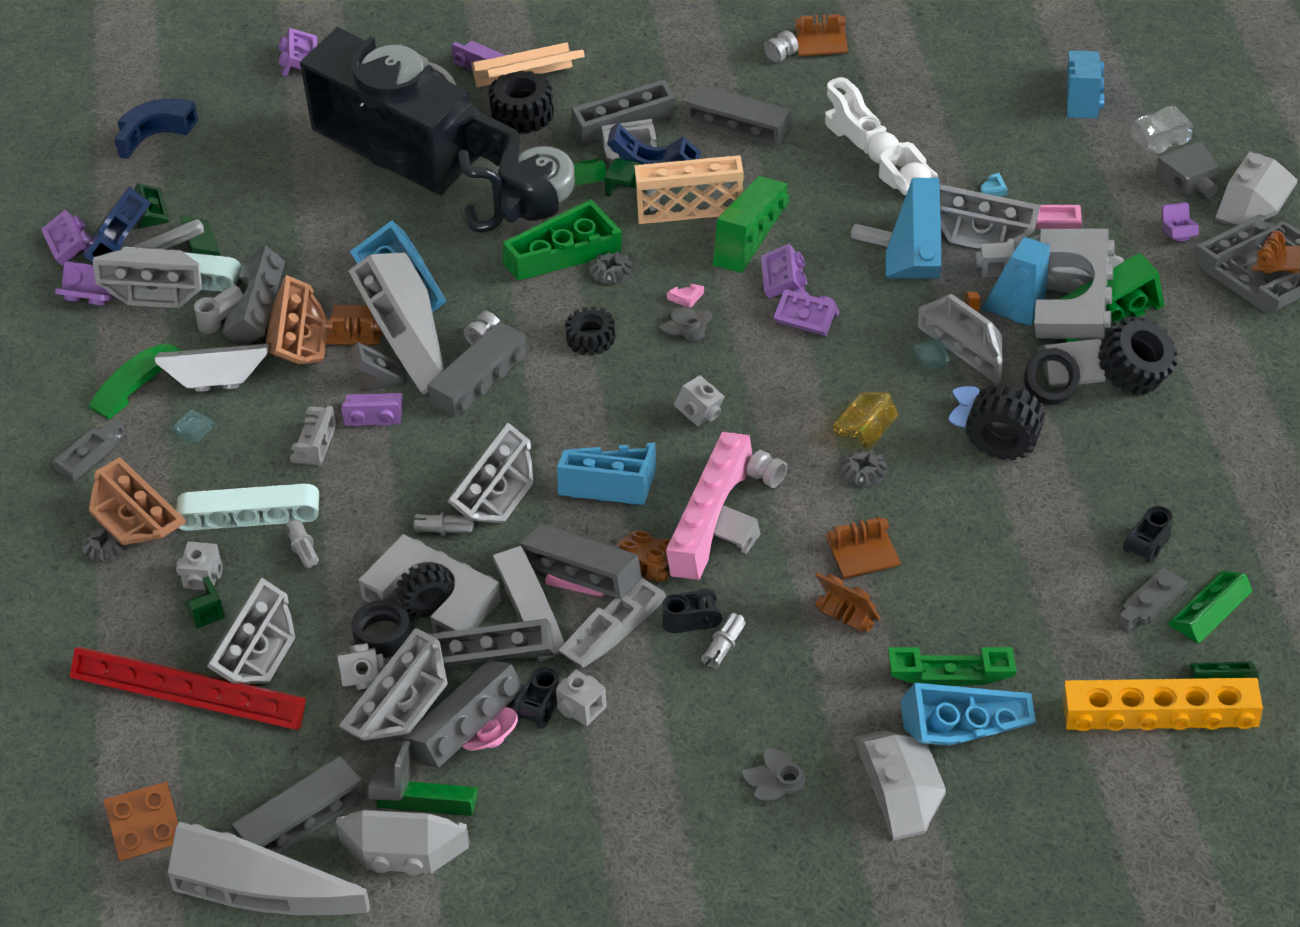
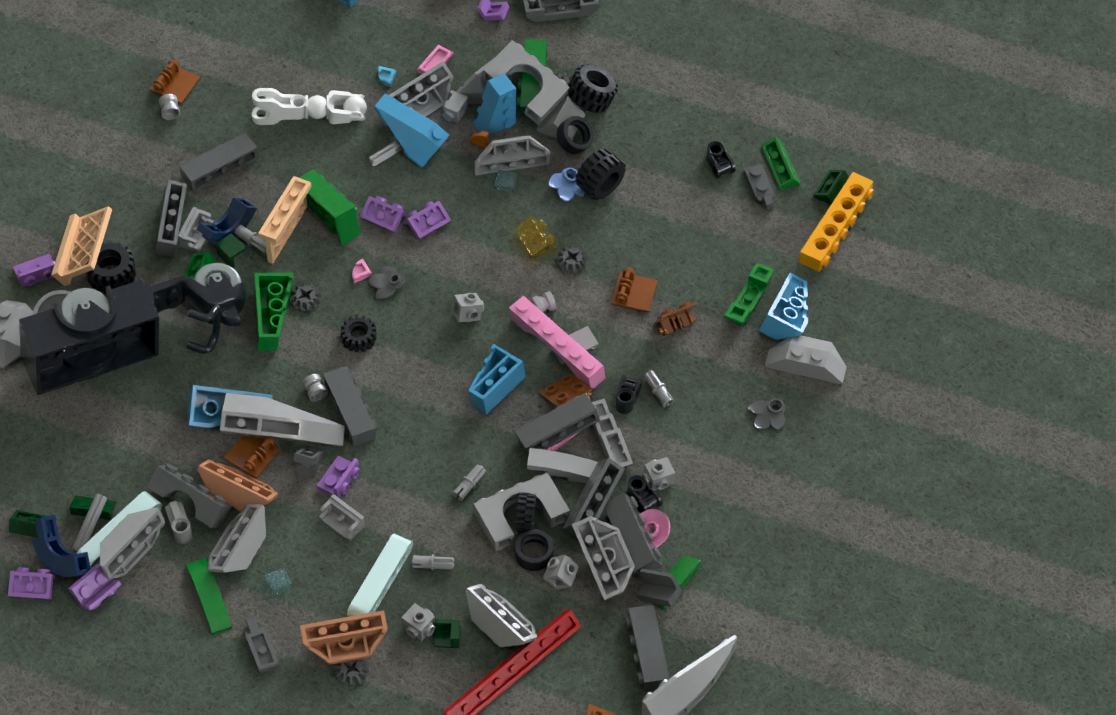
camera: 65 degrees left, 10 degrees up
(401, 840) = (705, 609): light grey wedge -> none
(496, 479) = (453, 439): light grey wedge -> none

